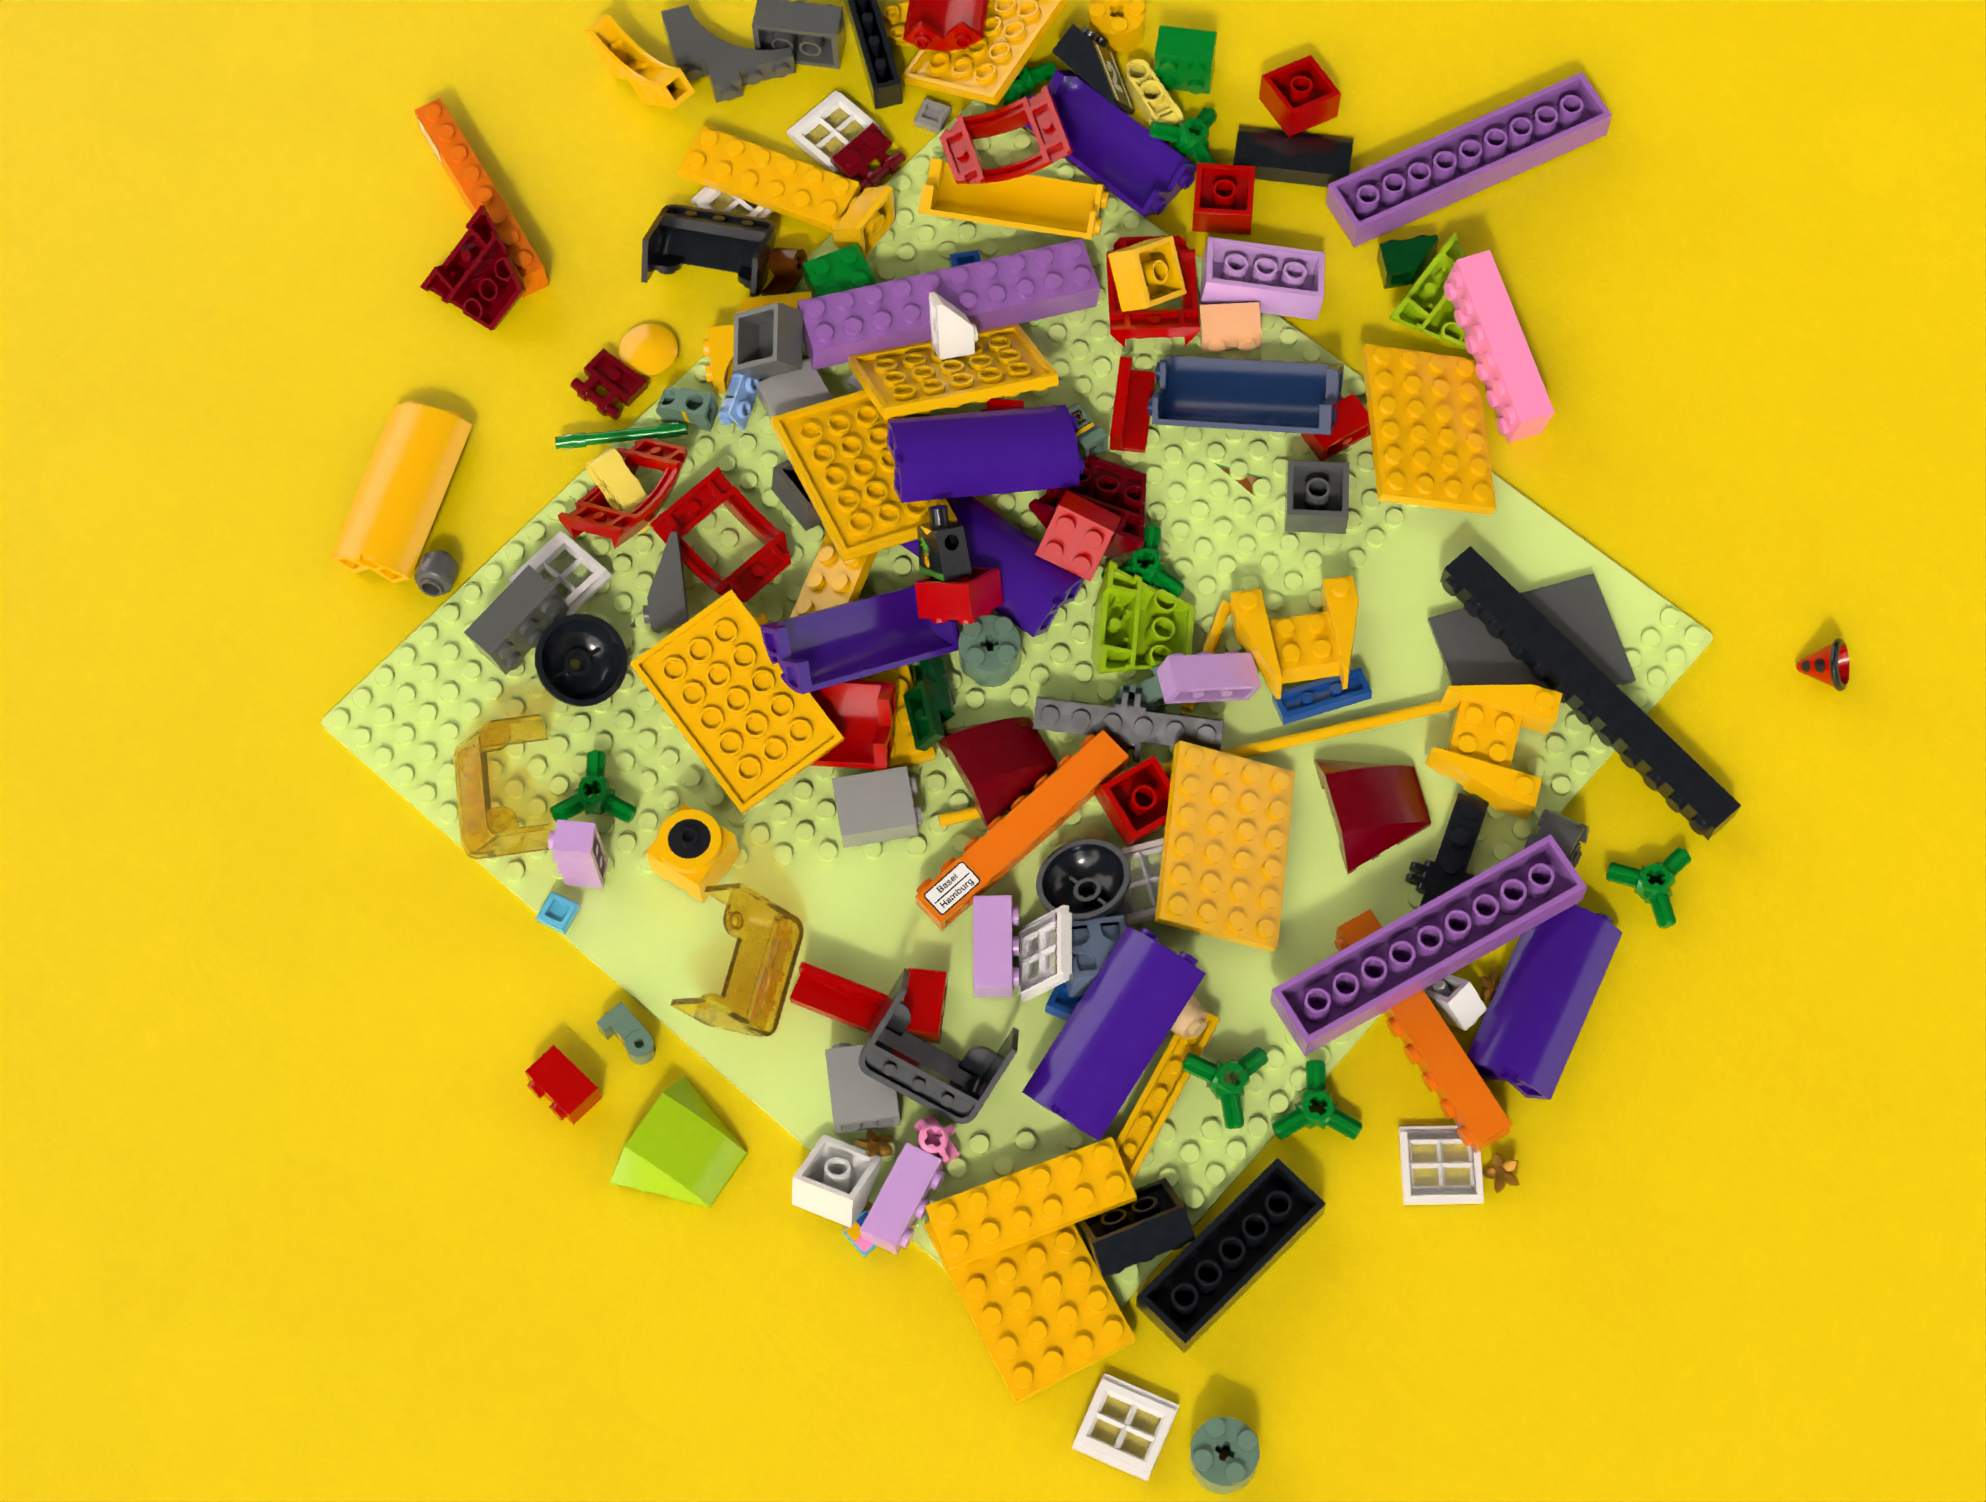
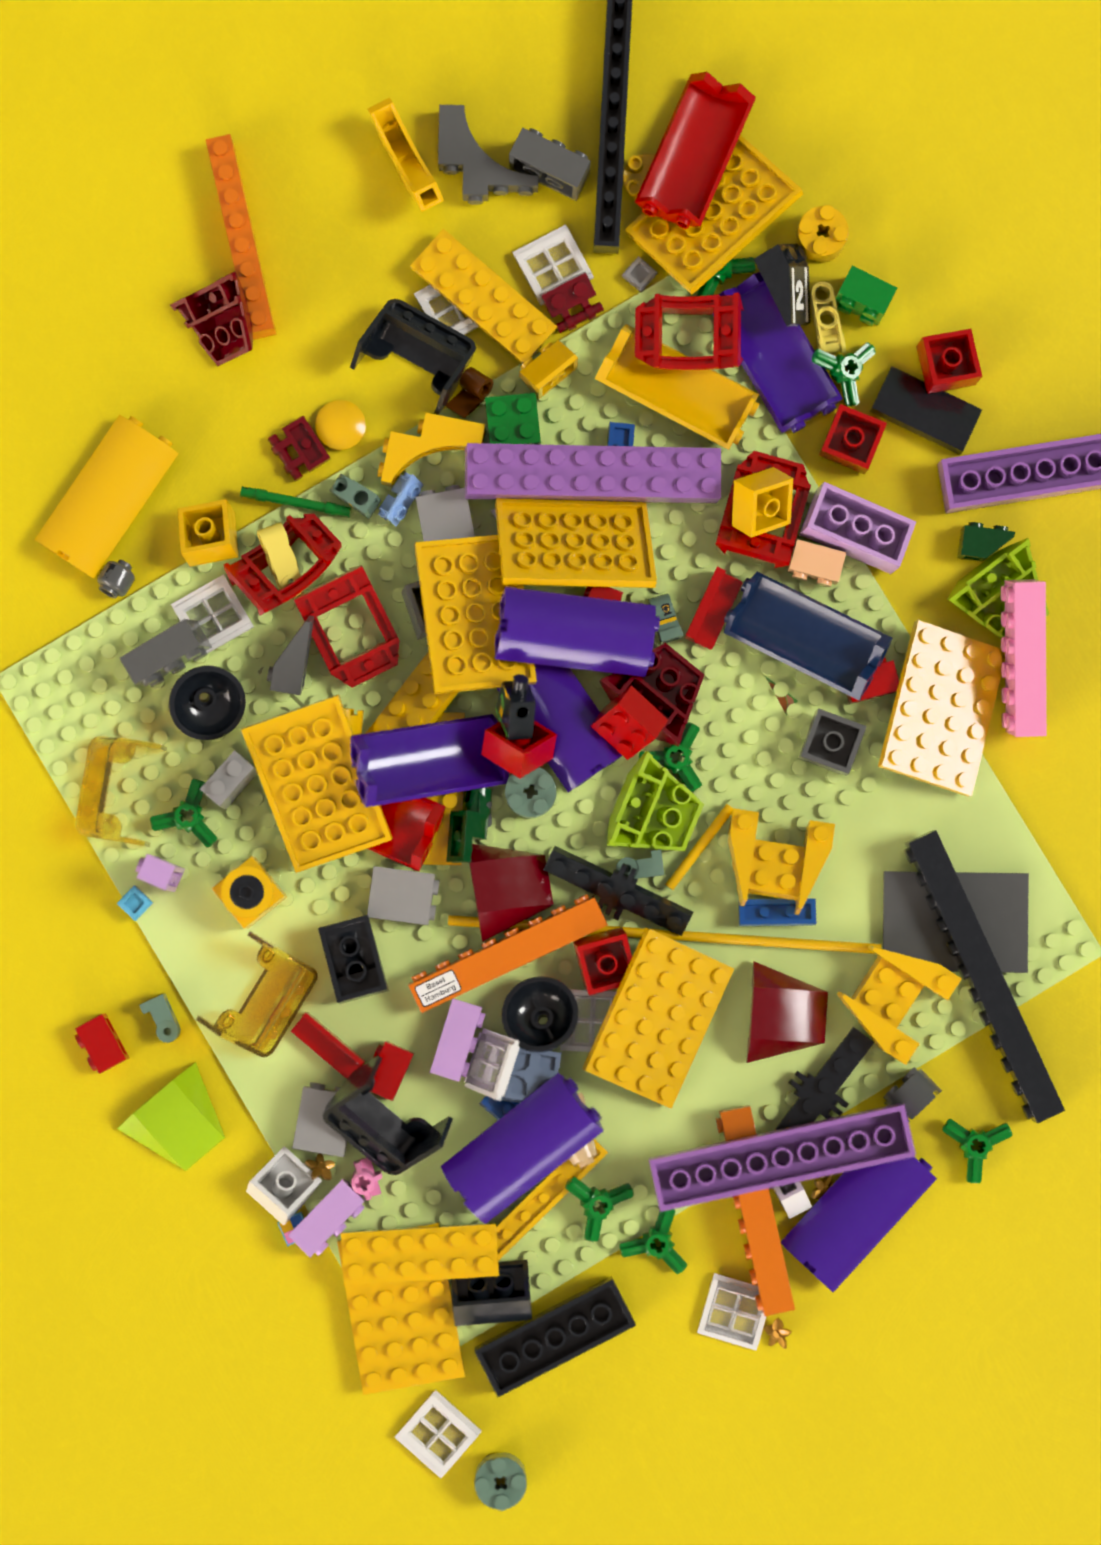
camera: 10 degrees right, 20 degrees up
(529, 491) = (208, 532): none -> yellow brick
(632, 733) = (229, 780): none -> light grey brick
(768, 341) = (433, 470): dark grey piece -> none
(841, 890) = (353, 959): none -> black slope
(950, 329) = (585, 507): white slope -> none
(1208, 677) = (692, 873): lavender brick -> none

